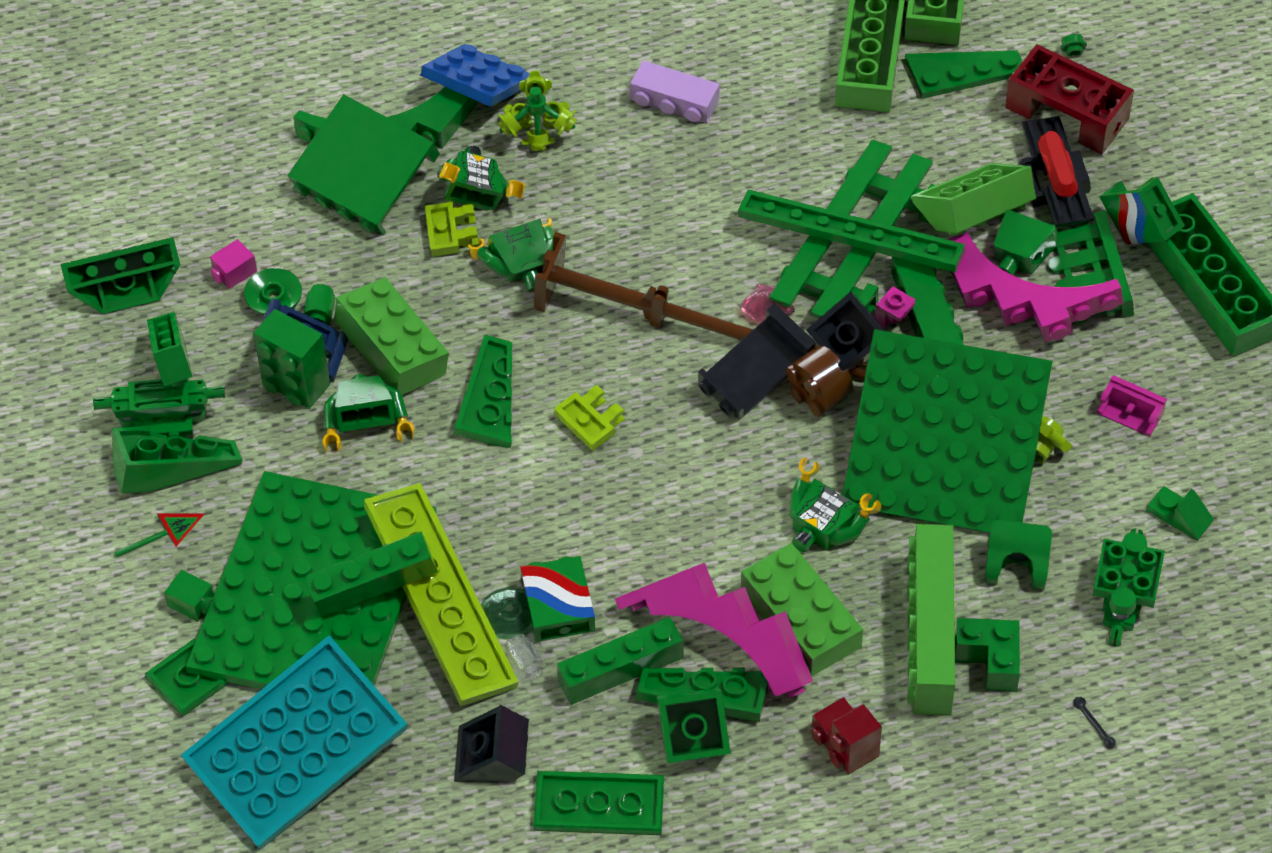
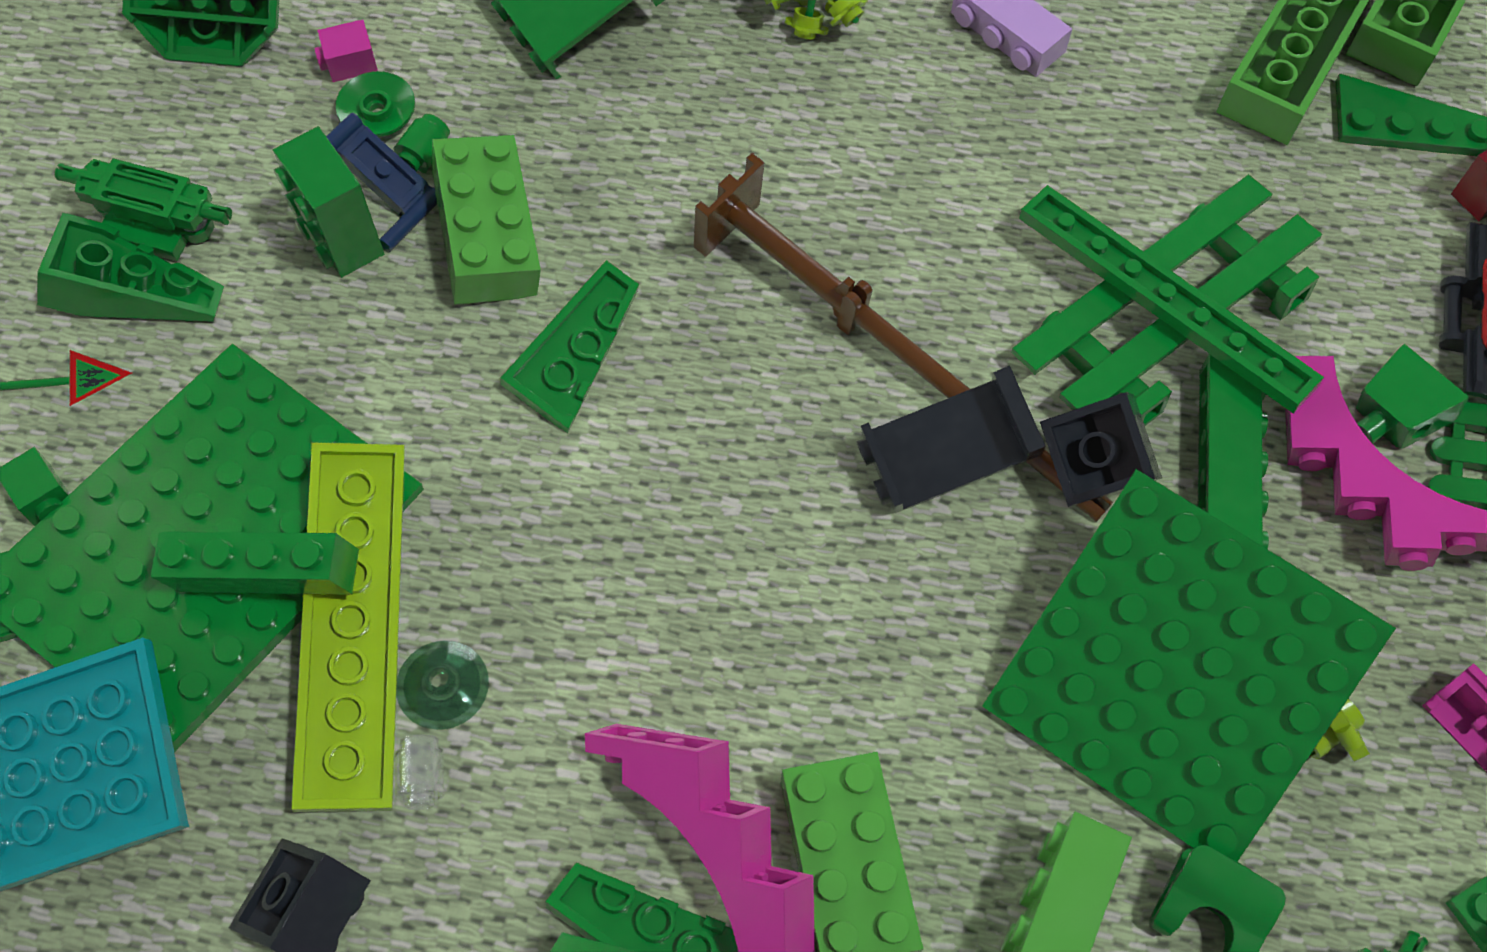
camera: 20 degrees right, 10 degrees up
(169, 349) = (181, 134): green brick -> none
(361, 405) = (398, 301): green torso -> none
(442, 228) = (629, 97): lime plate -> none
(476, 180) = (697, 46): torso -> none
(517, 251) = (701, 157): green torso -> none
(558, 598) = (509, 694): panel -> none
(585, 422) = (681, 434): lime plate -> none
(620, 660) = (546, 836): green brick -> none
(758, 302) = (994, 352): clear pink animal -> none
(819, 380) = (1029, 503): reddish brown brick -> none
(824, 514) = (950, 716): green torso -> none
(893, 307) = (1182, 429): dark pink bracket -> none
(976, 197) = (1365, 309): bright green slope -> none

